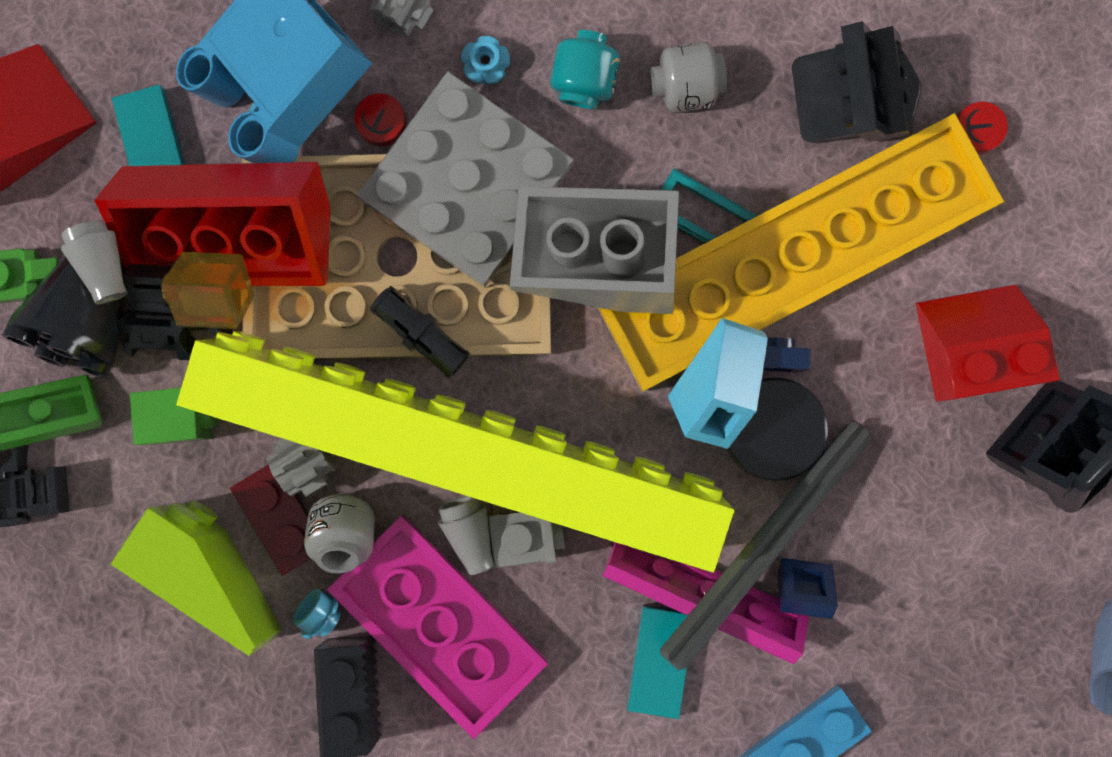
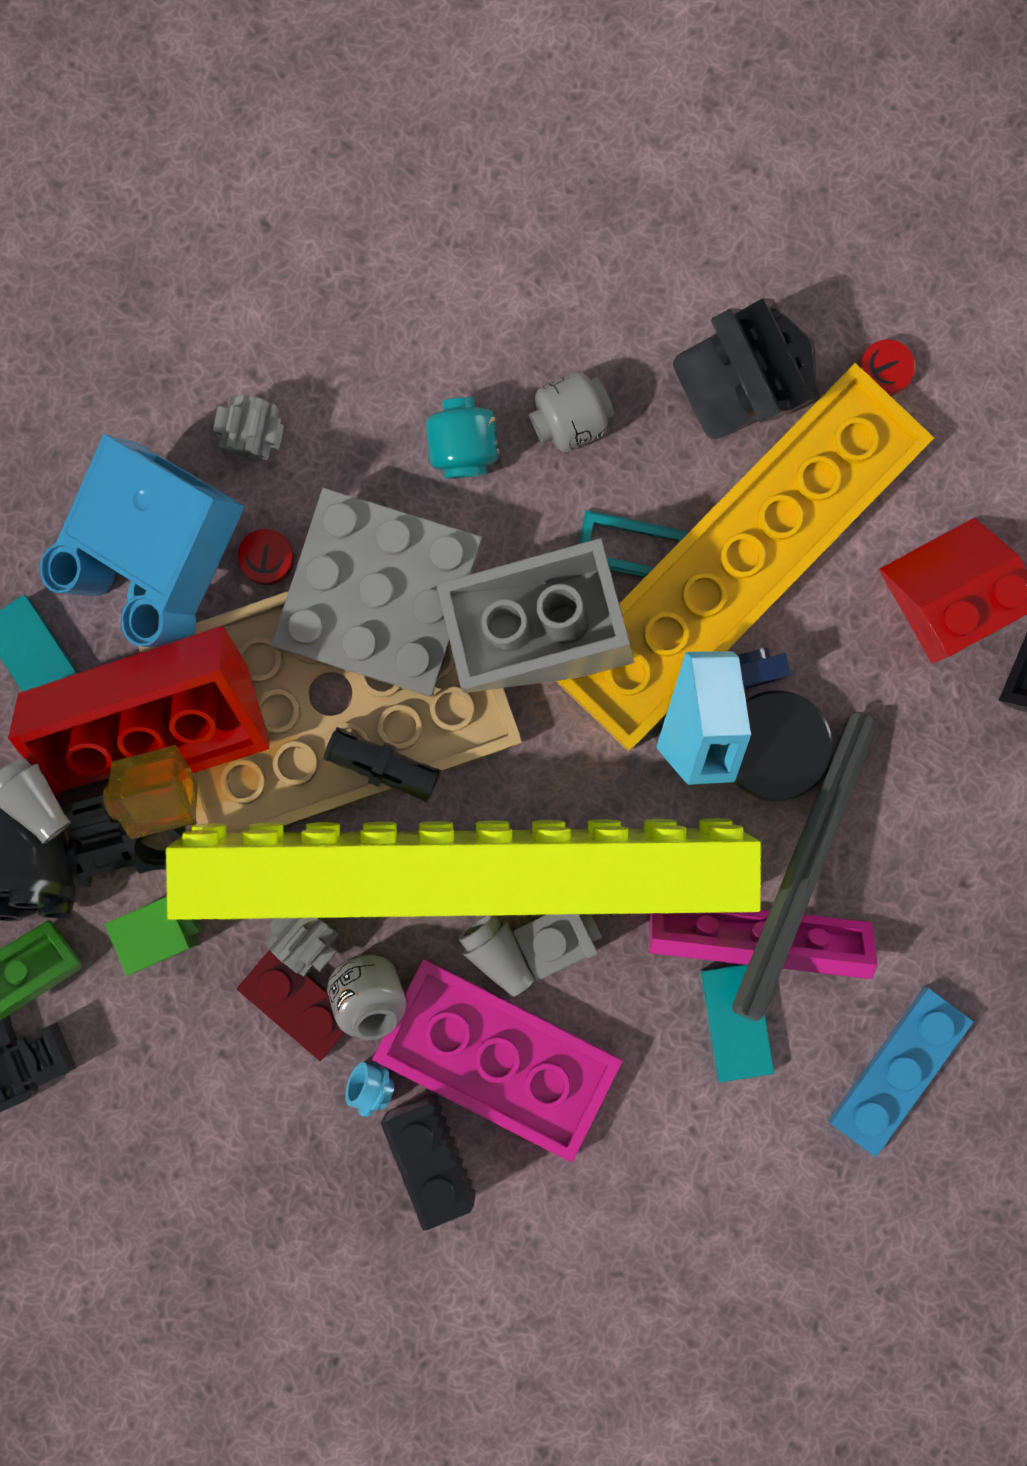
camera: 20 degrees left, 0 degrees up
(199, 571) = (234, 1081): lime slope -> none
(485, 73) = (354, 475): medium azure plate -> none
(807, 588) = (861, 897): dark blue plate -> none

